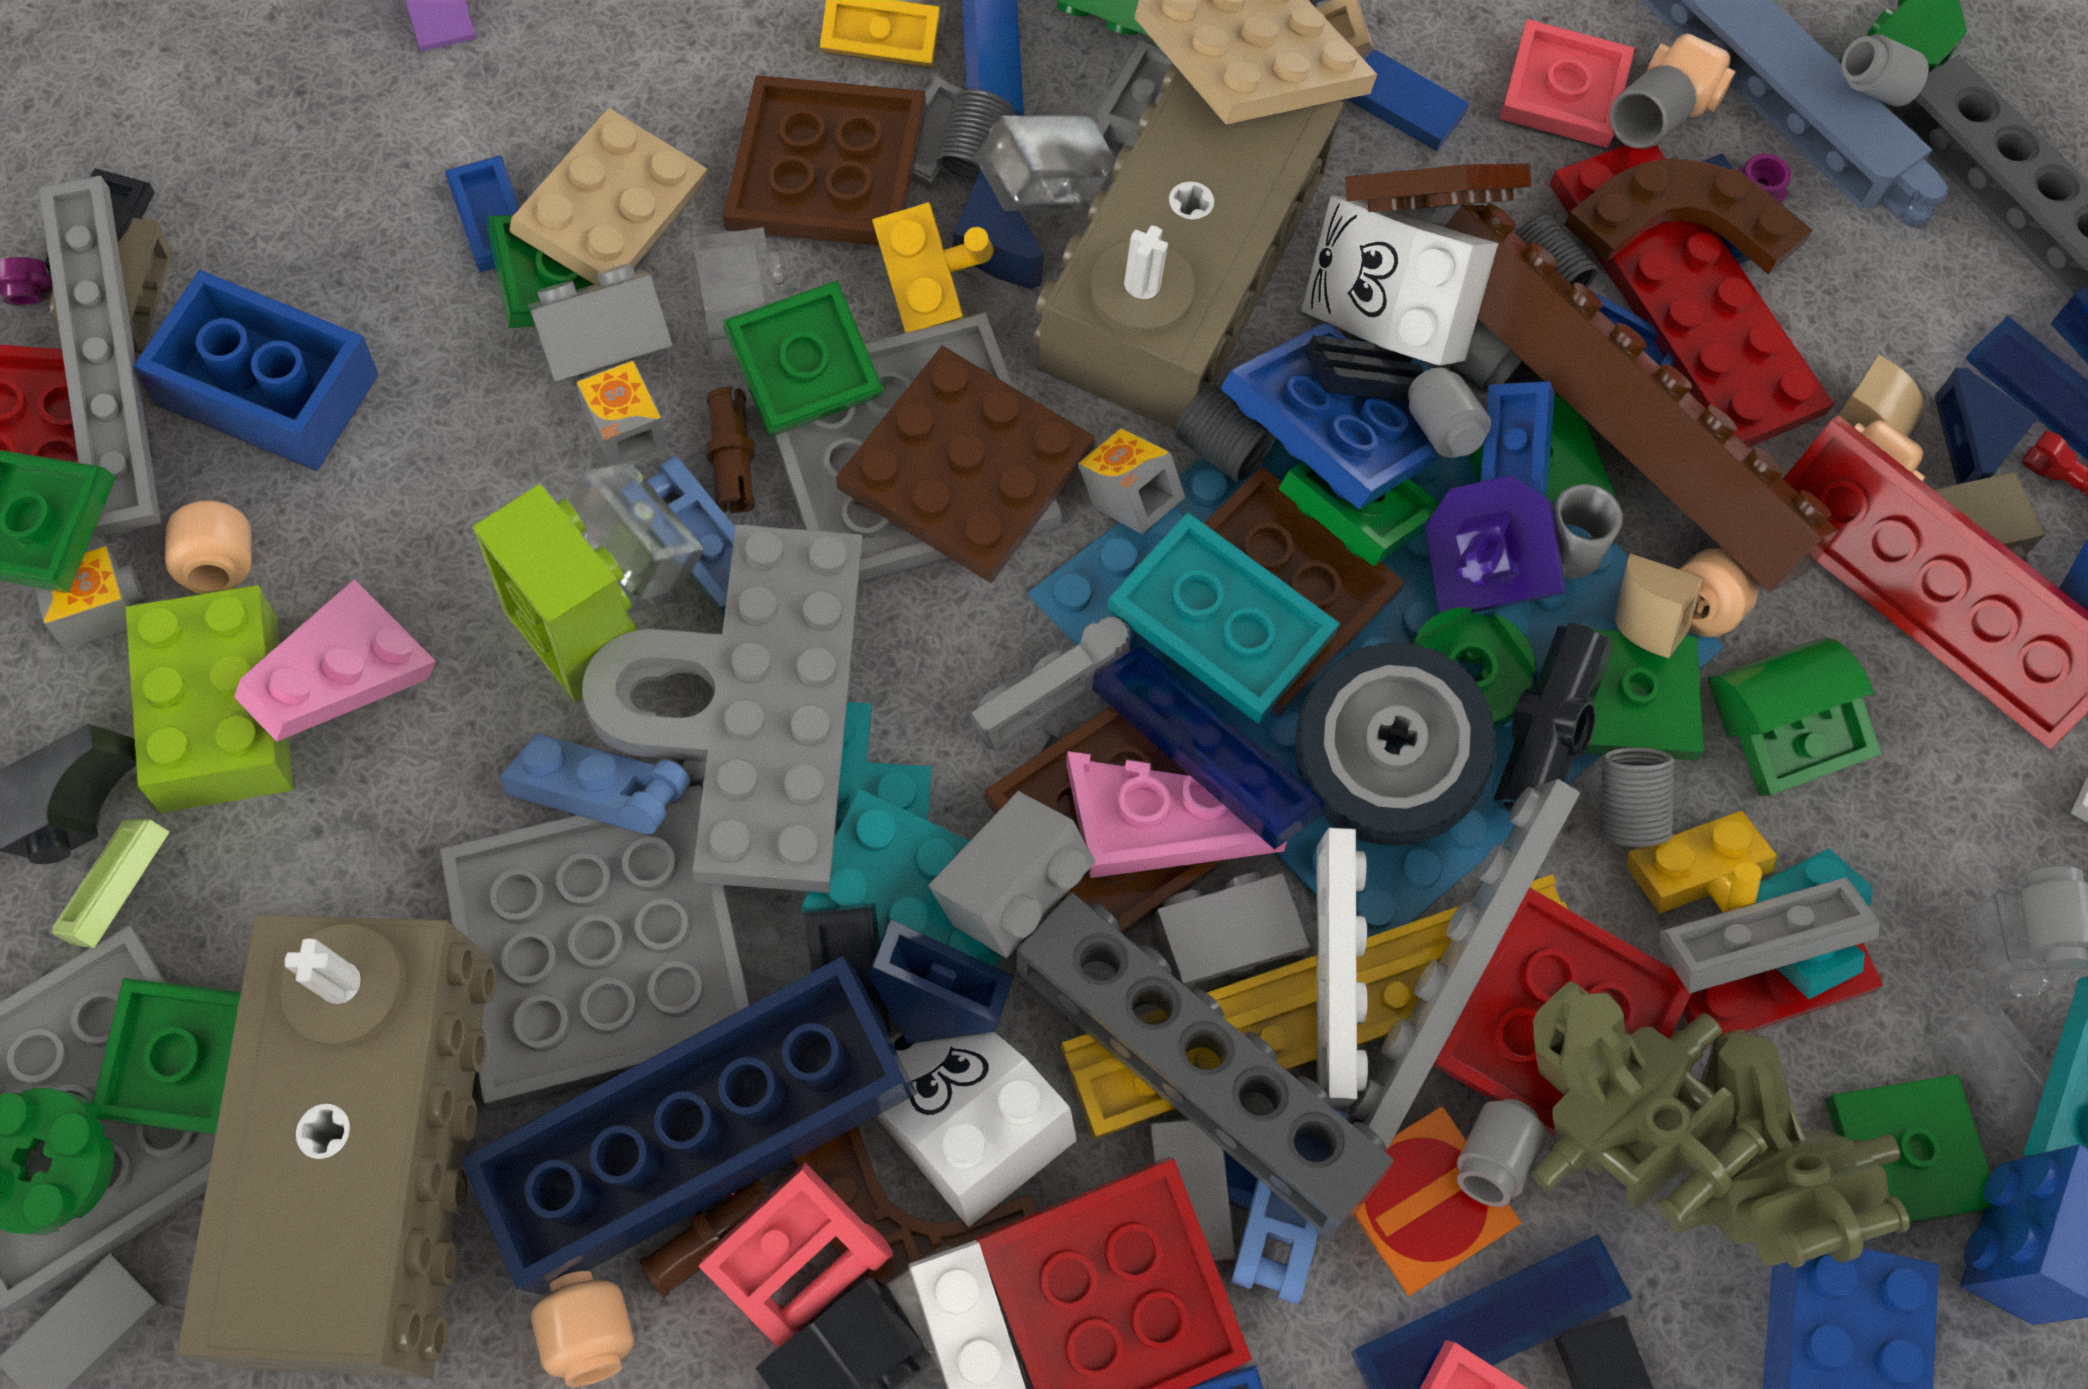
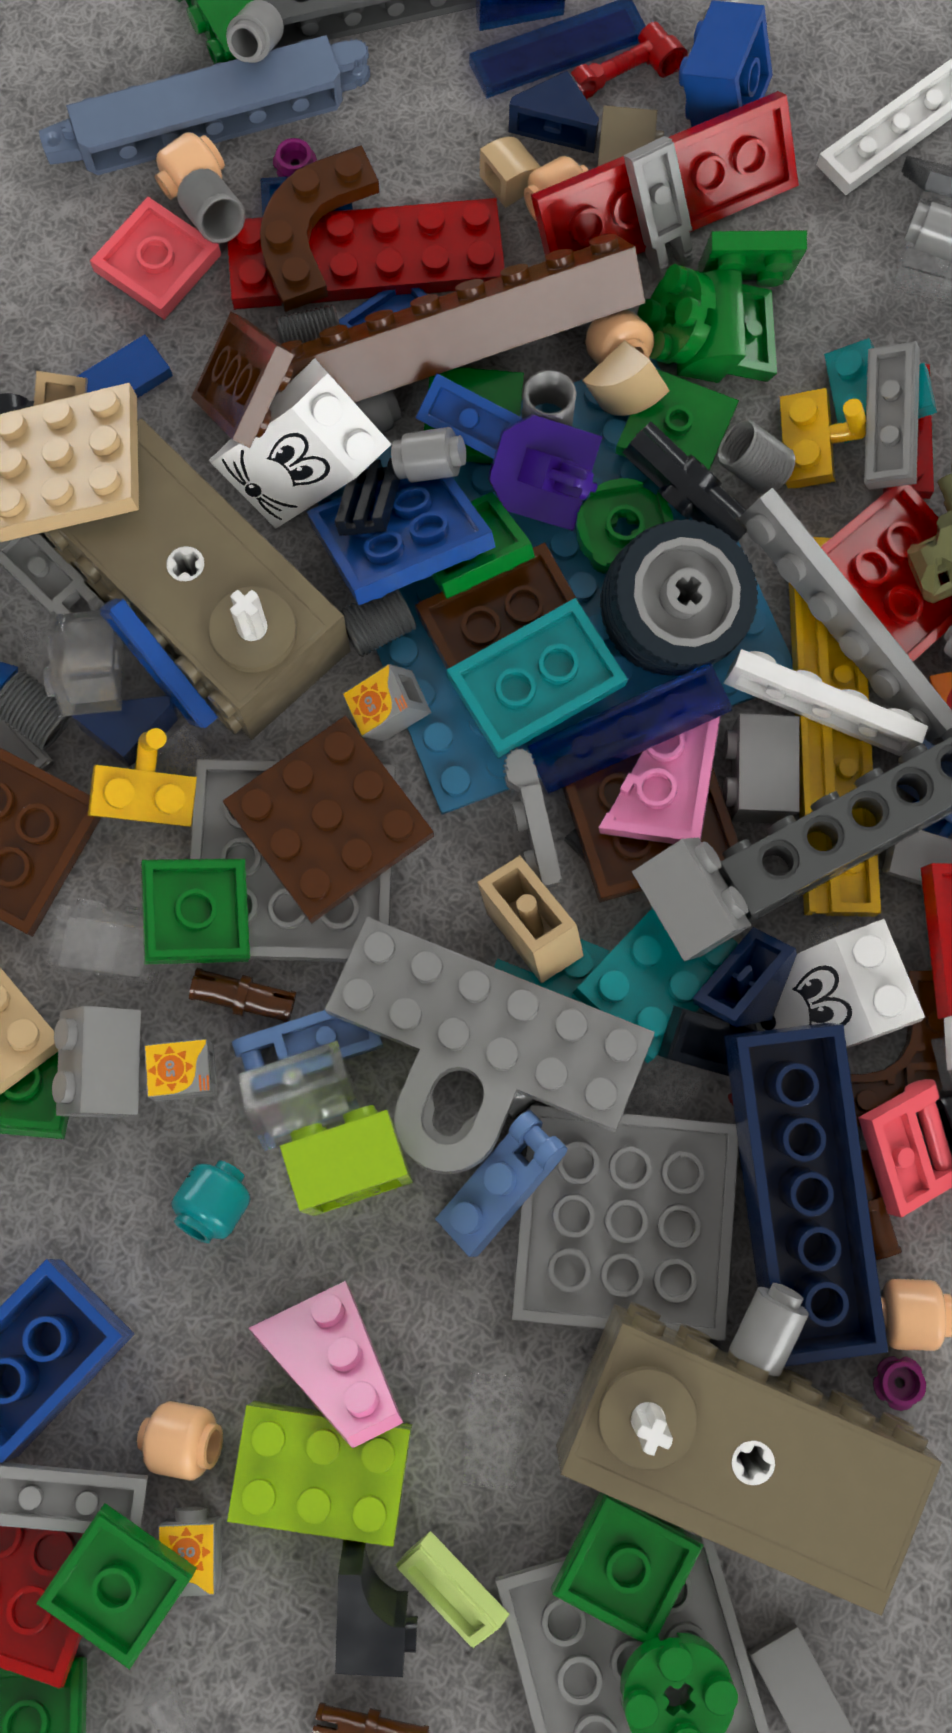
camera: 65 degrees left, 10 degrees up
(478, 485) = (210, 1201): none -> teal head
(478, 1334) = (912, 1389): none -> magenta plate
(496, 1114) = (770, 1328): none -> light grey brick
(923, 710) = (531, 919): none -> tan brick
(1093, 176) = (157, 663): none -> blue tile
(1776, 639) = (678, 314): none -> green plate
(1906, 704) = (759, 255): none -> green plate
(1915, 567) = (660, 203): none -> light grey hinge

